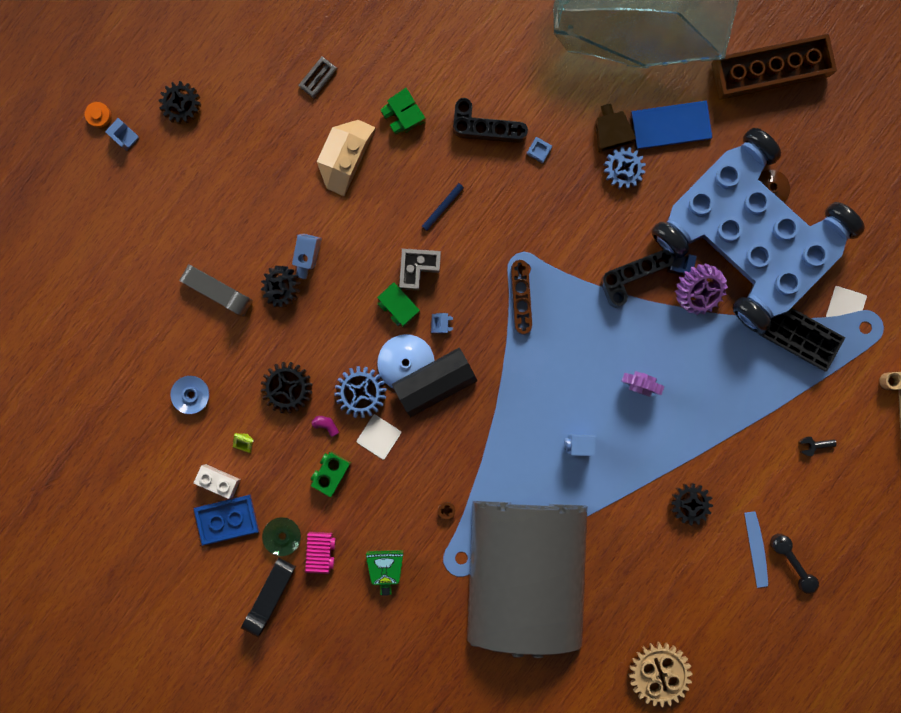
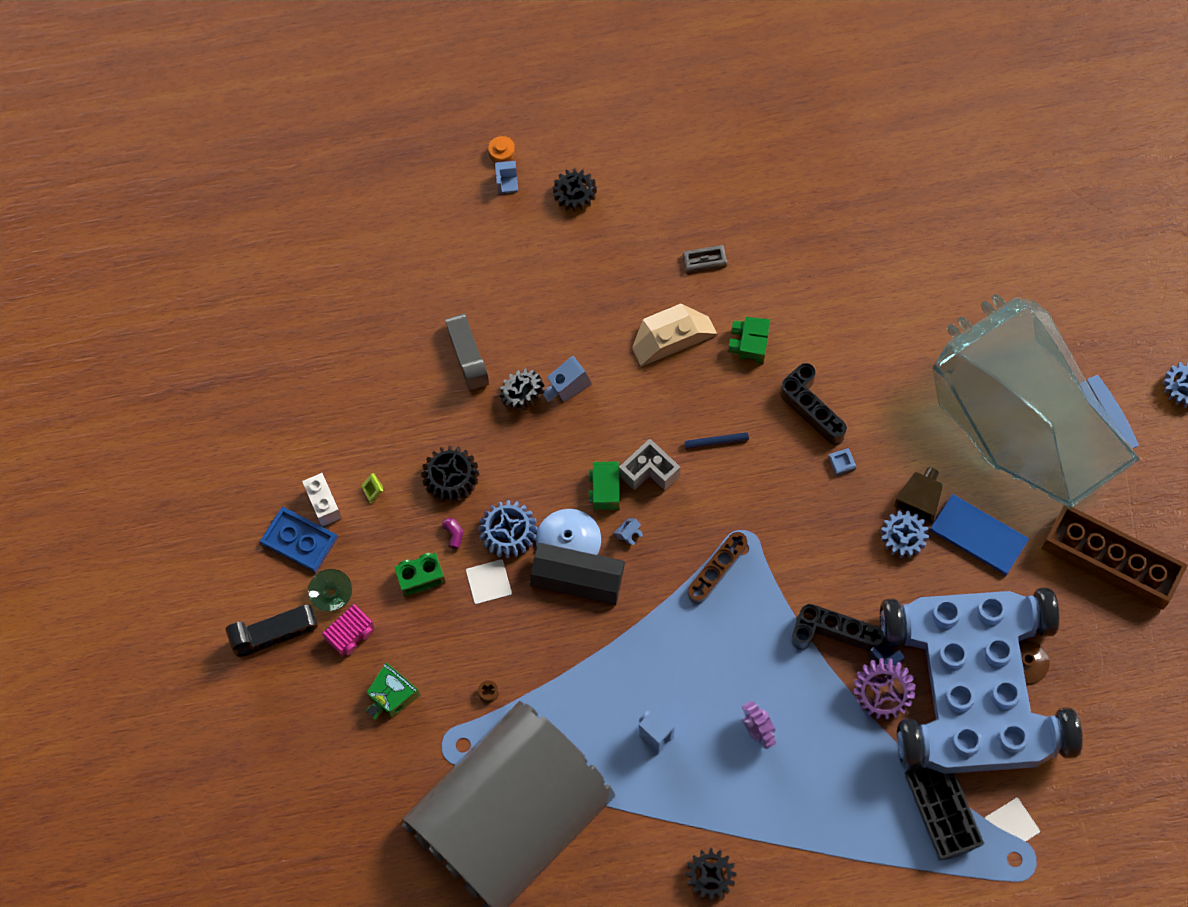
camera: 45 degrees right, 20 degrees down
(180, 393) = (365, 405): medium blue dish -> none

